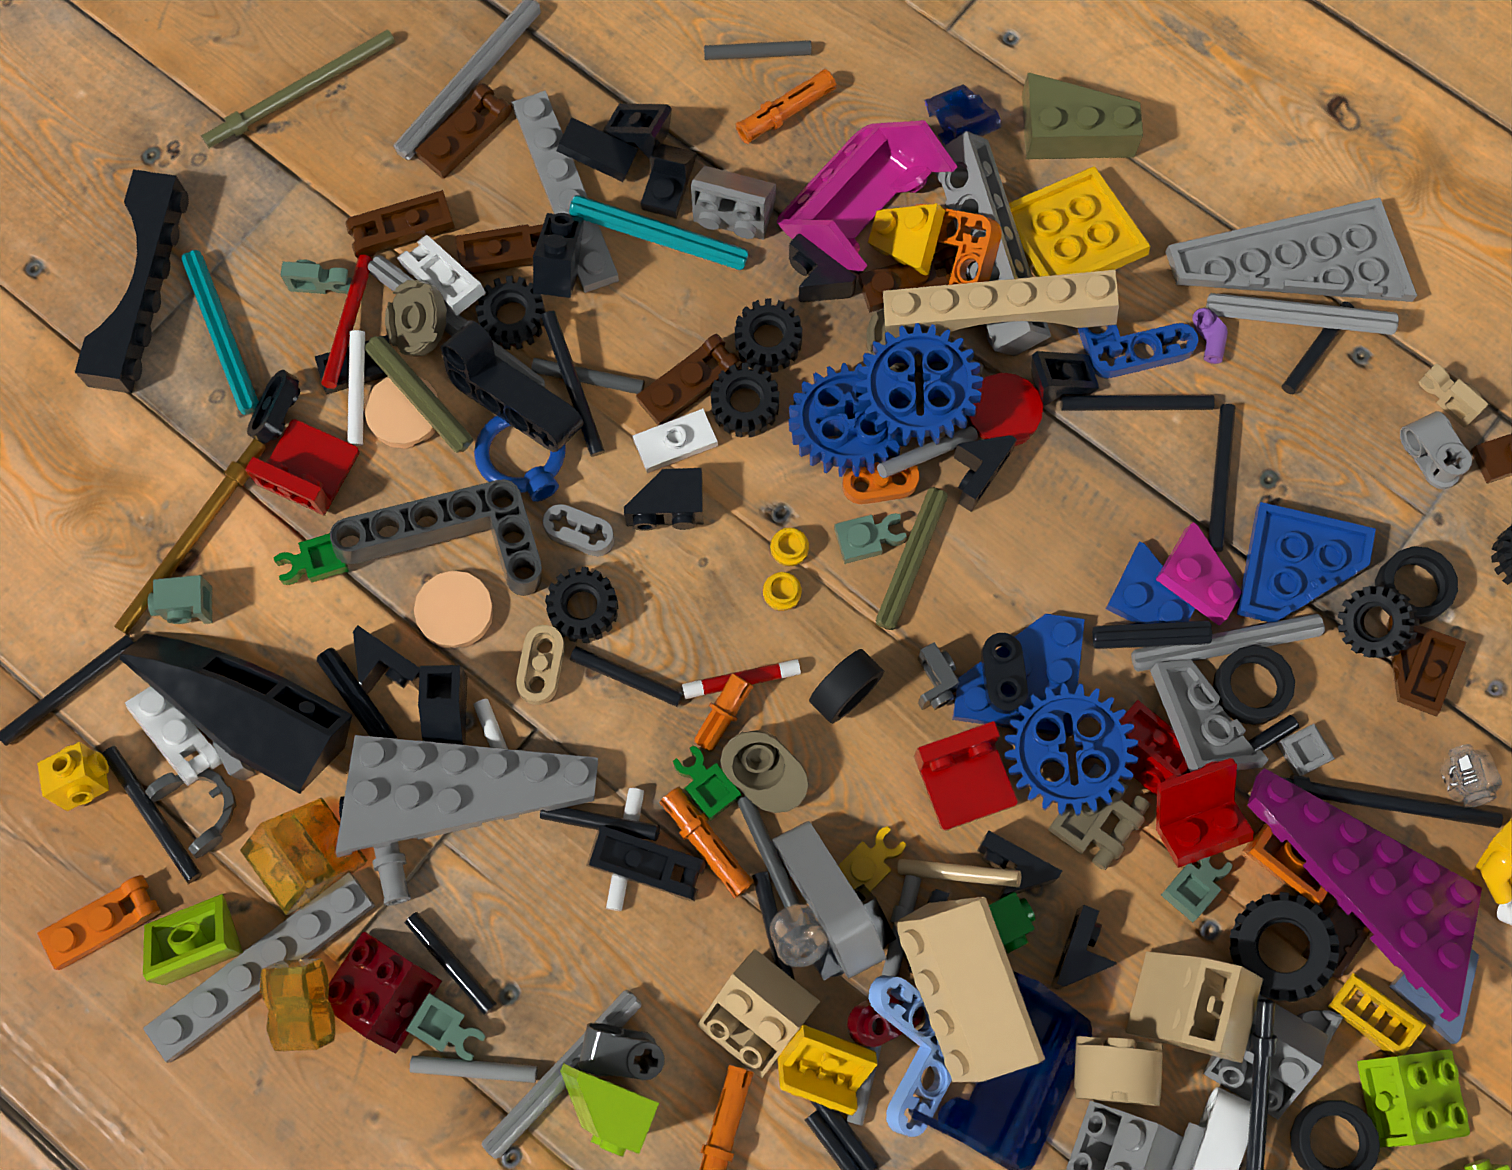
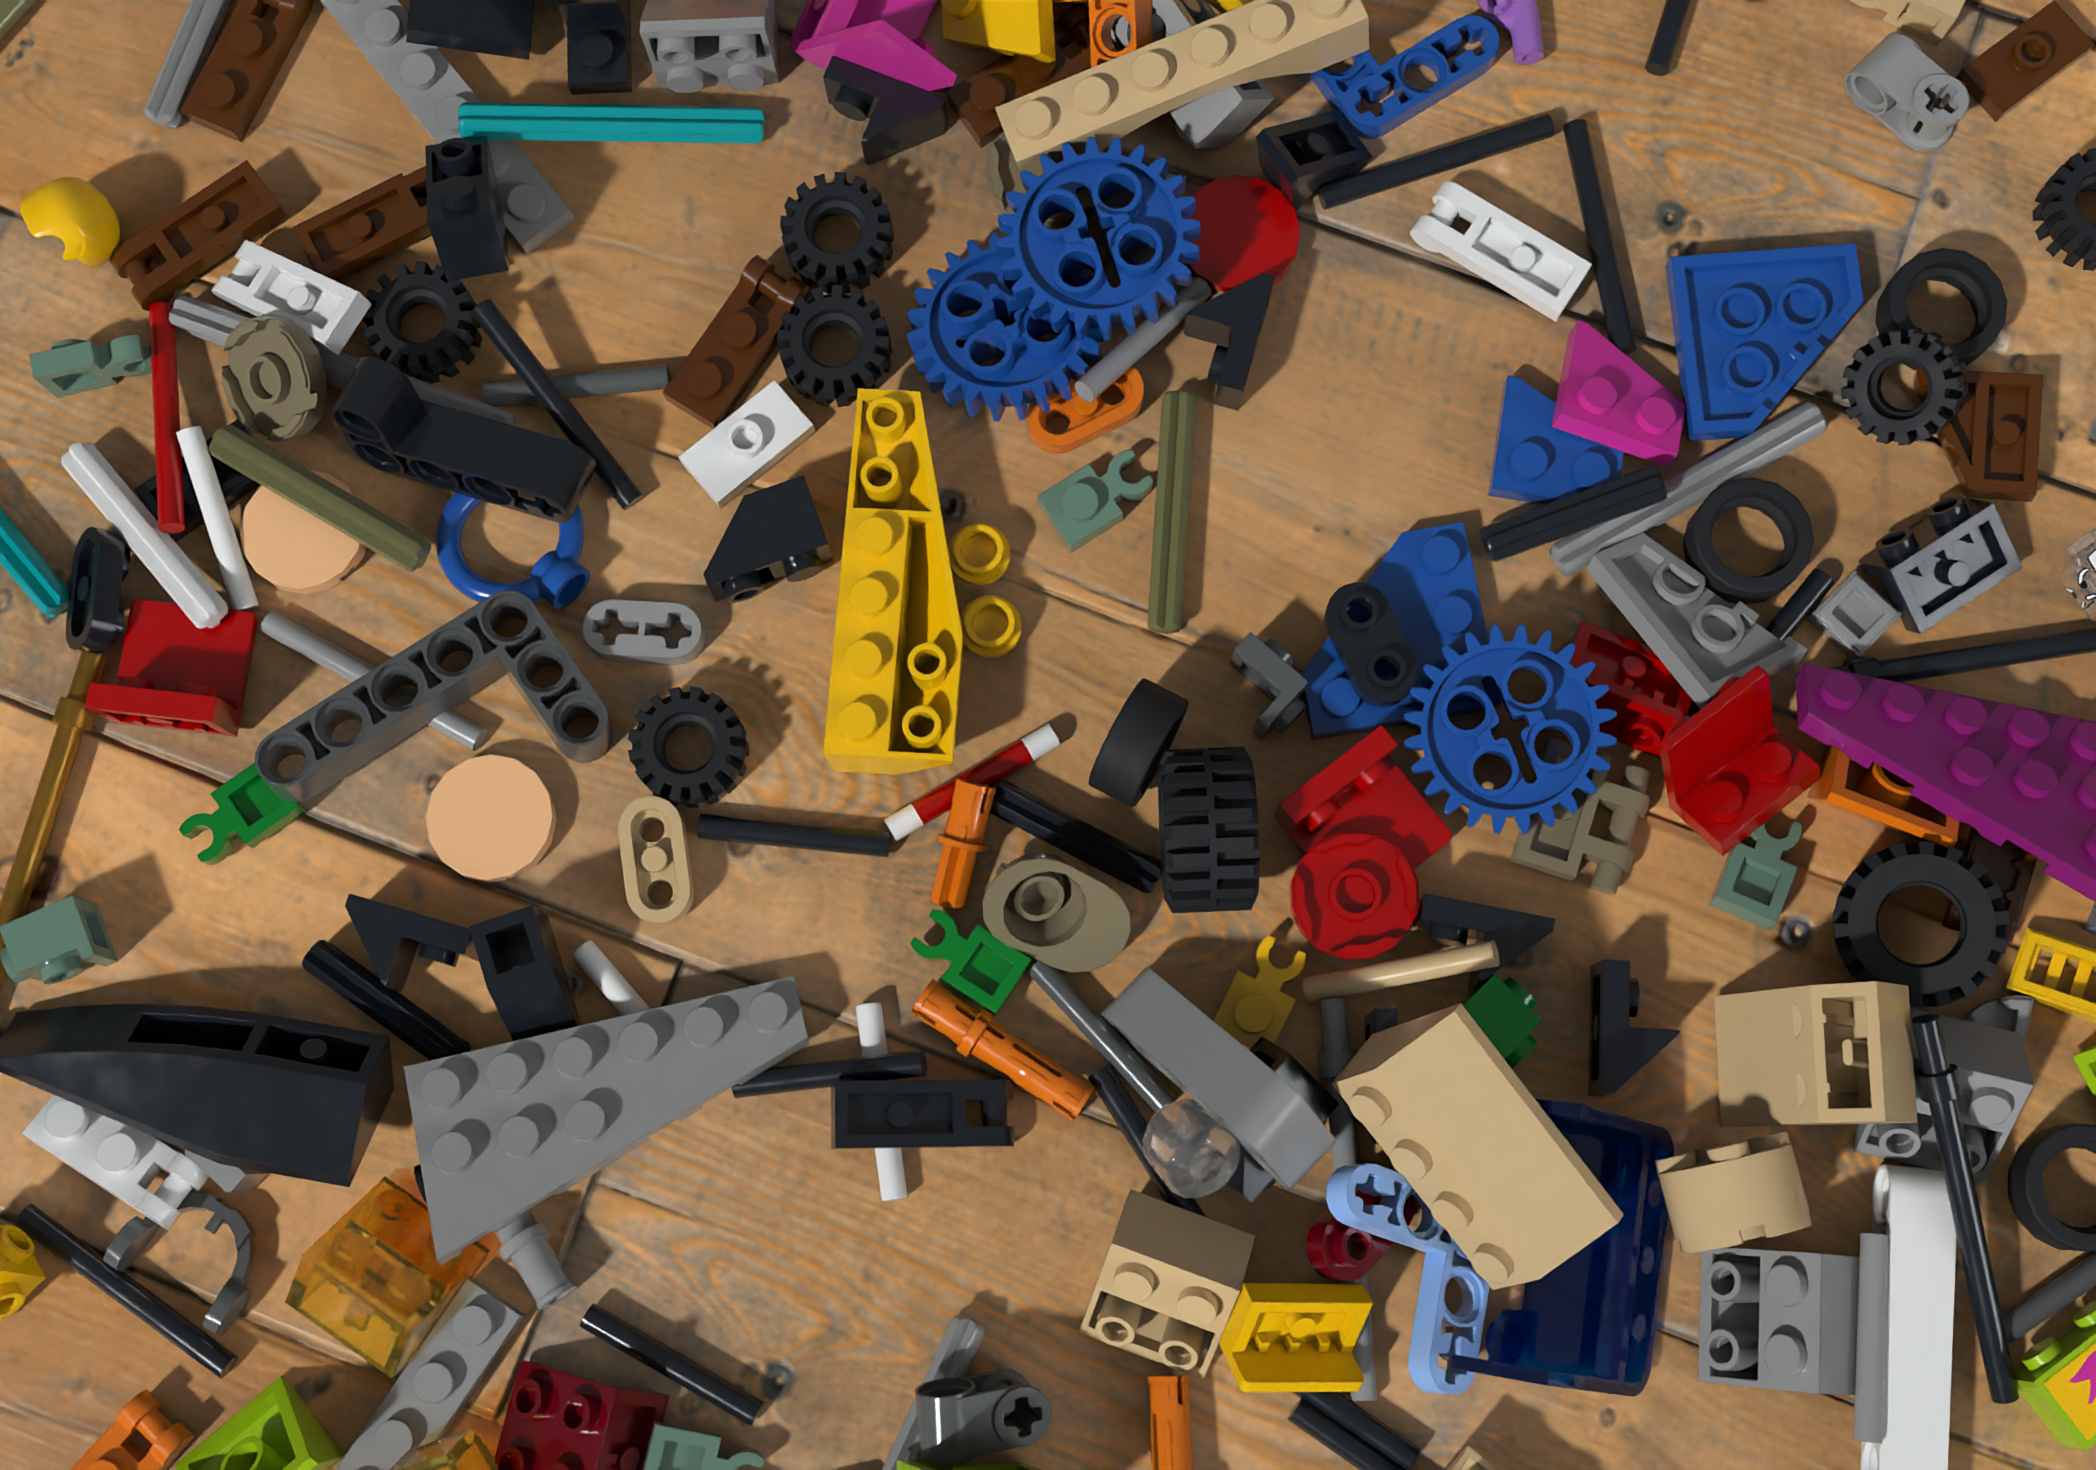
camera: 15 degrees left, 5 degrees up
(310, 382) = (142, 535): none -> white axle
(336, 192) = (77, 216): none -> yellow hair
(402, 496) = (352, 667): none -> light grey bar
(730, 559) = (896, 603): none -> yellow wedge
(792, 731) = (1076, 837): none -> black axle
(870, 749) = (1208, 829): none -> black tyre
(946, 818) = (1354, 895): none -> red tile
(1159, 467) = (1501, 250): none -> white plate
(1370, 734) = (1943, 560): none -> black bracket

